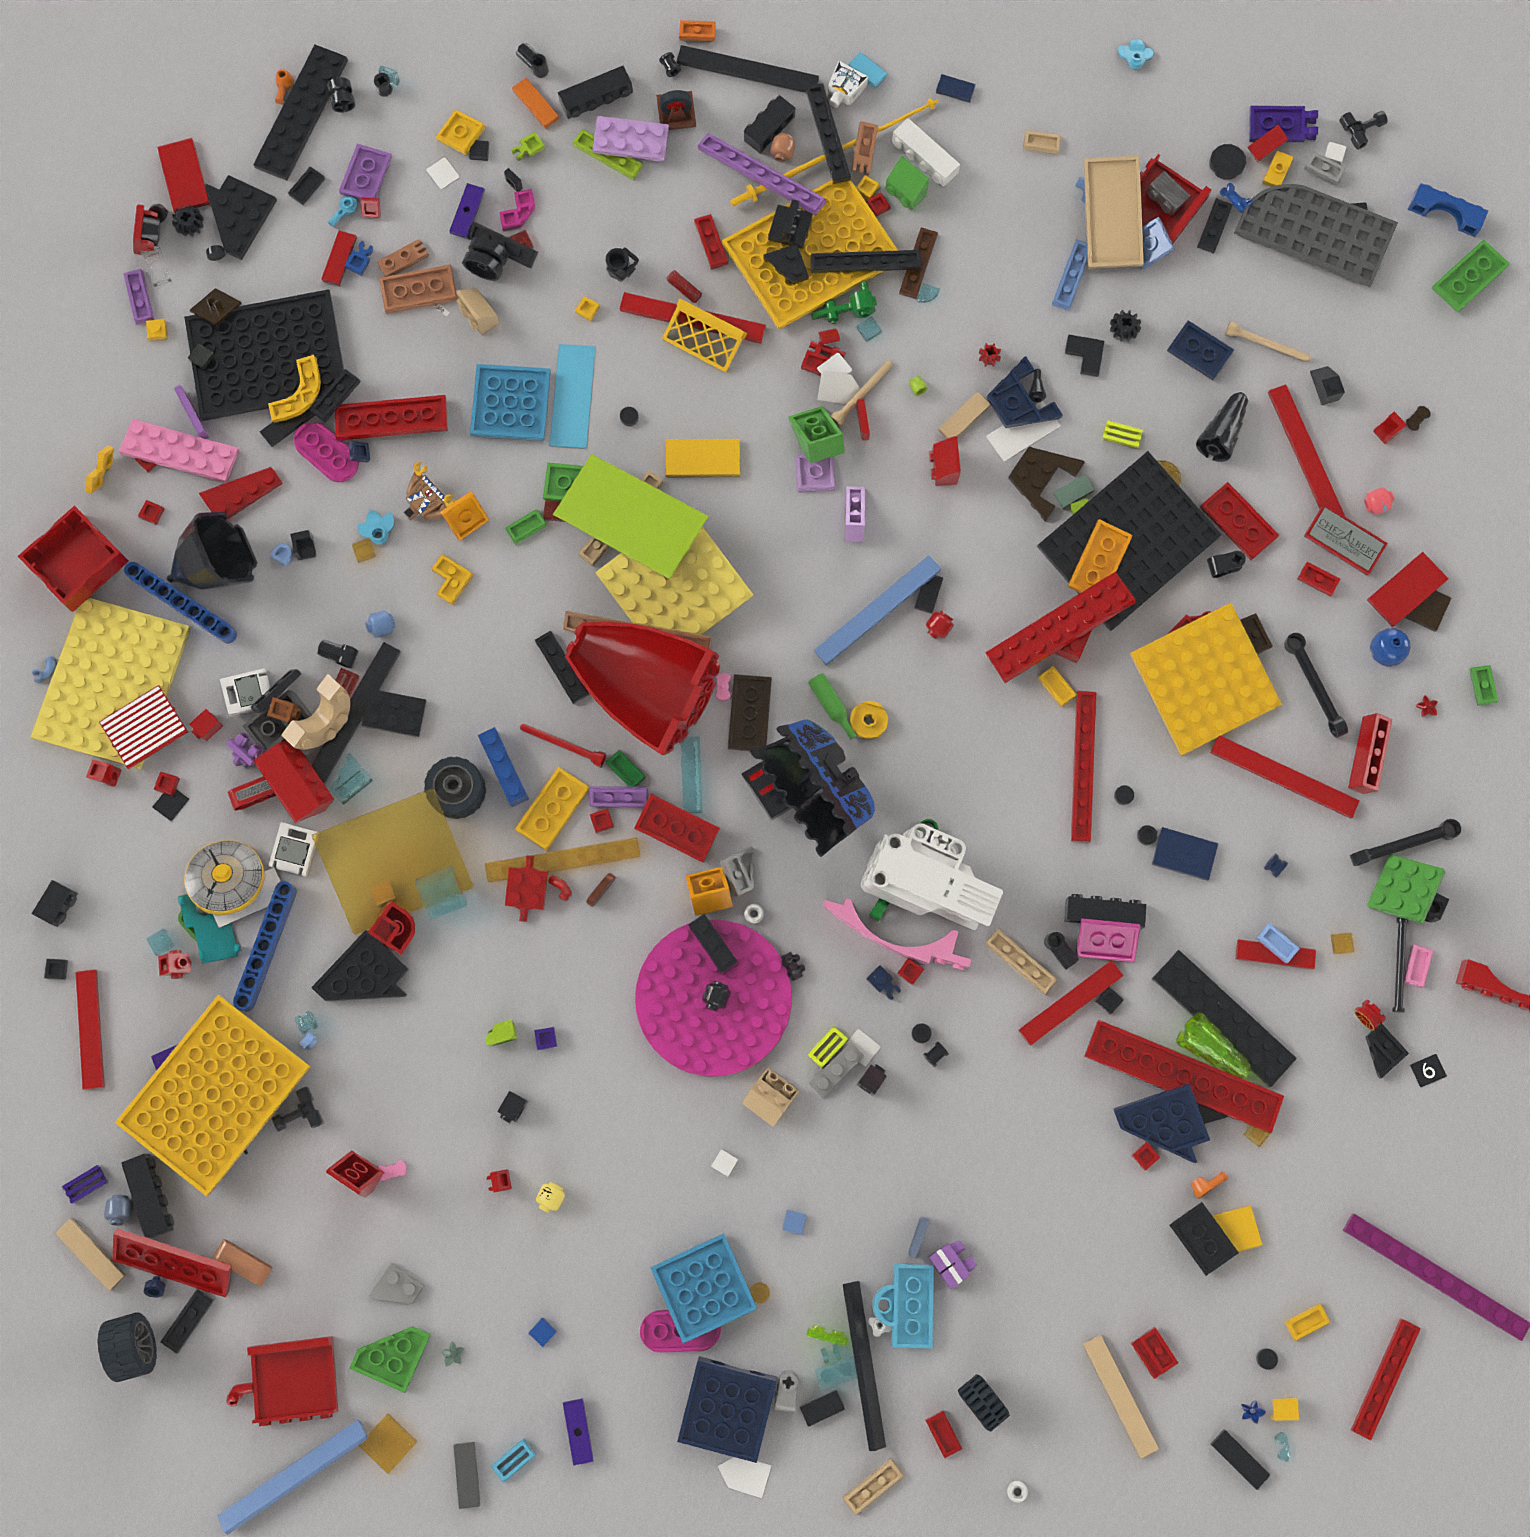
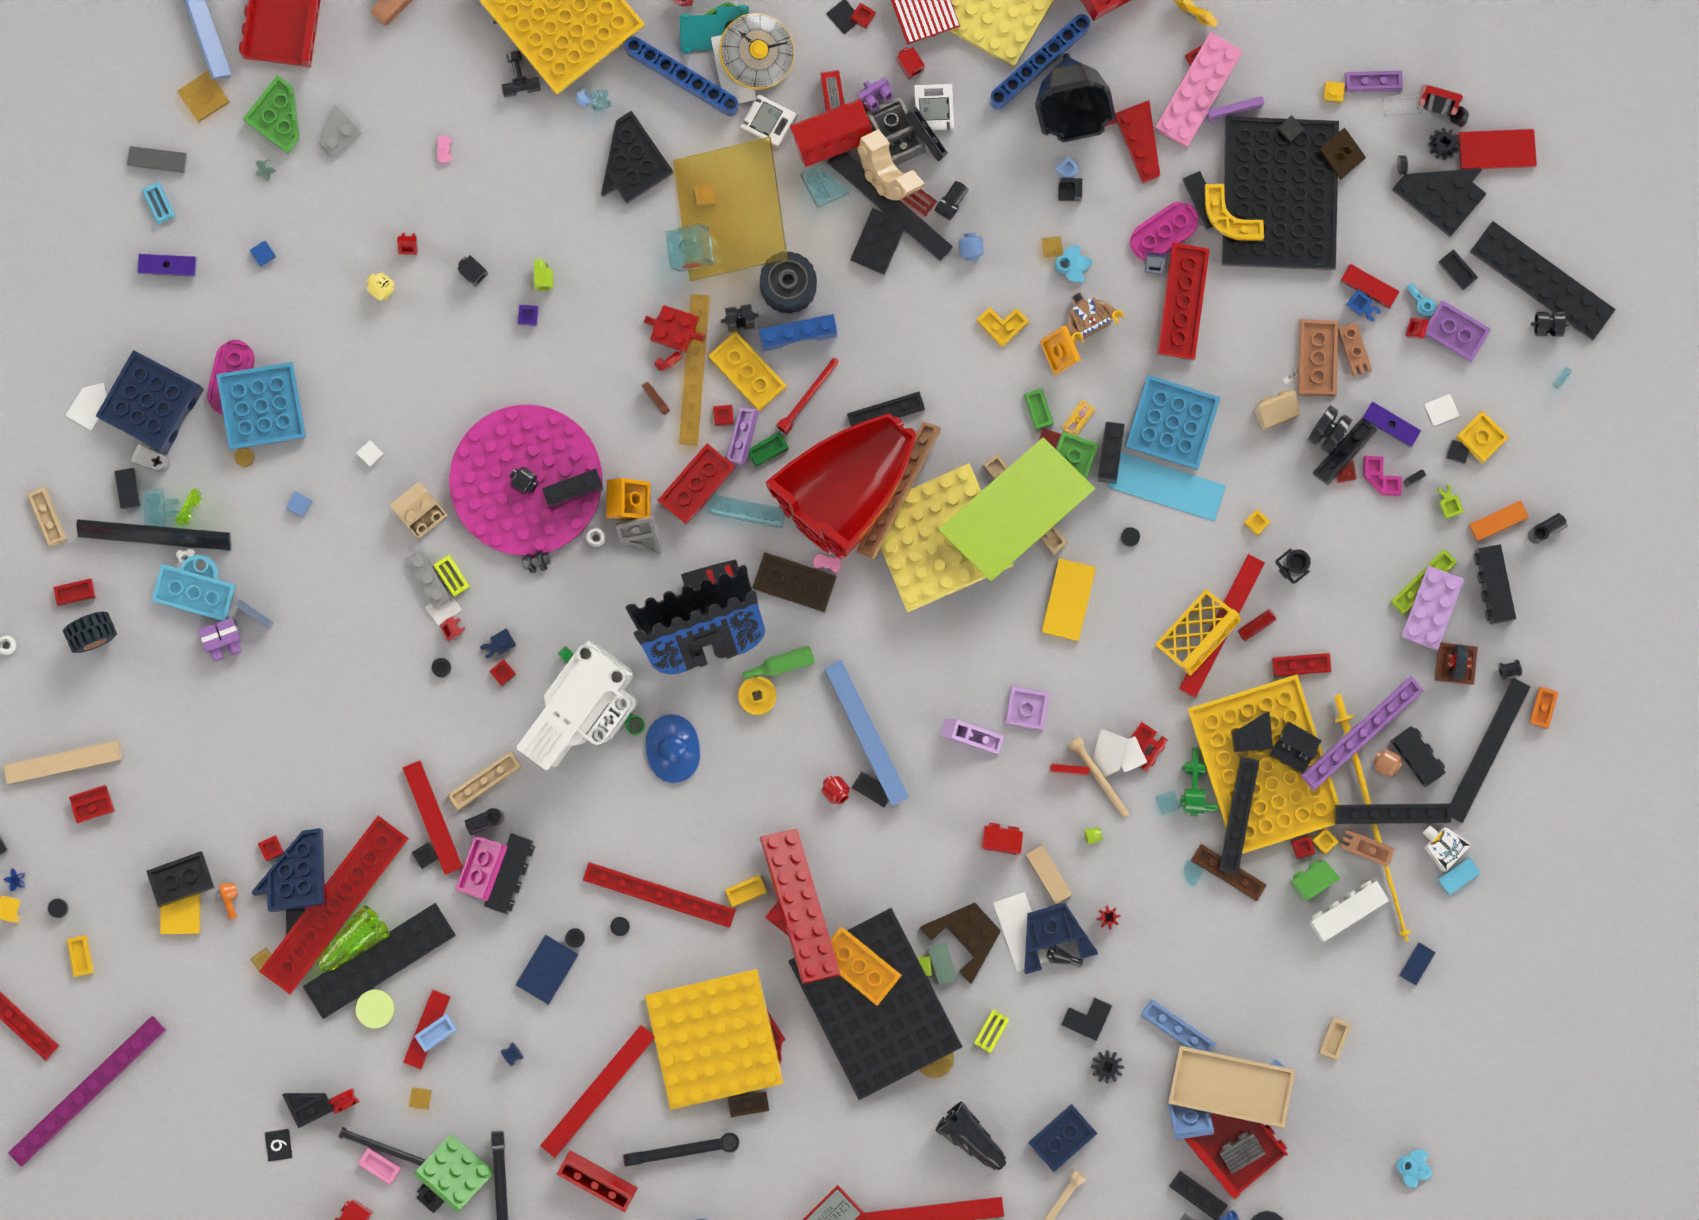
camera: 100 degrees right, 5 degrees up
(151, 512) = (1141, 51): red tile -> none
(283, 83) = (1576, 268): orange bar -> none
(284, 710) = (902, 137): dark orange bracket -> none
(335, 395) = (1217, 251): black tile -> none
(356, 1173) = (445, 114): red slope -> none
(383, 84) = (1558, 368): black bush -> none
(393, 927) = (667, 196): red brick -> none
(501, 828) = (739, 318): none -> black wheel
(526, 489) = (1078, 418): none -> yellow sticker
(553, 449) = (1111, 452): none -> black brick
(817, 434) = (1064, 718): bright green slope -> none
(829, 336) = (1167, 758): red tile -> none
(872, 1079) = (408, 607): black slope -> none
(881, 1032) = (450, 628): none -> red tile
(936, 1054) = (417, 675): black bush -> none
(940, 788) = (672, 748): none -> blue hat
(940, 950) = (514, 704): bright pink slope -> none
(1222, 564) = (828, 1092): black piece -> none
(1239, 521) = (871, 1124): red tile -> none
(1271, 1009) = (375, 1009): none -> yellowish green tile
(1318, 579) = (789, 1186): red plate -> none

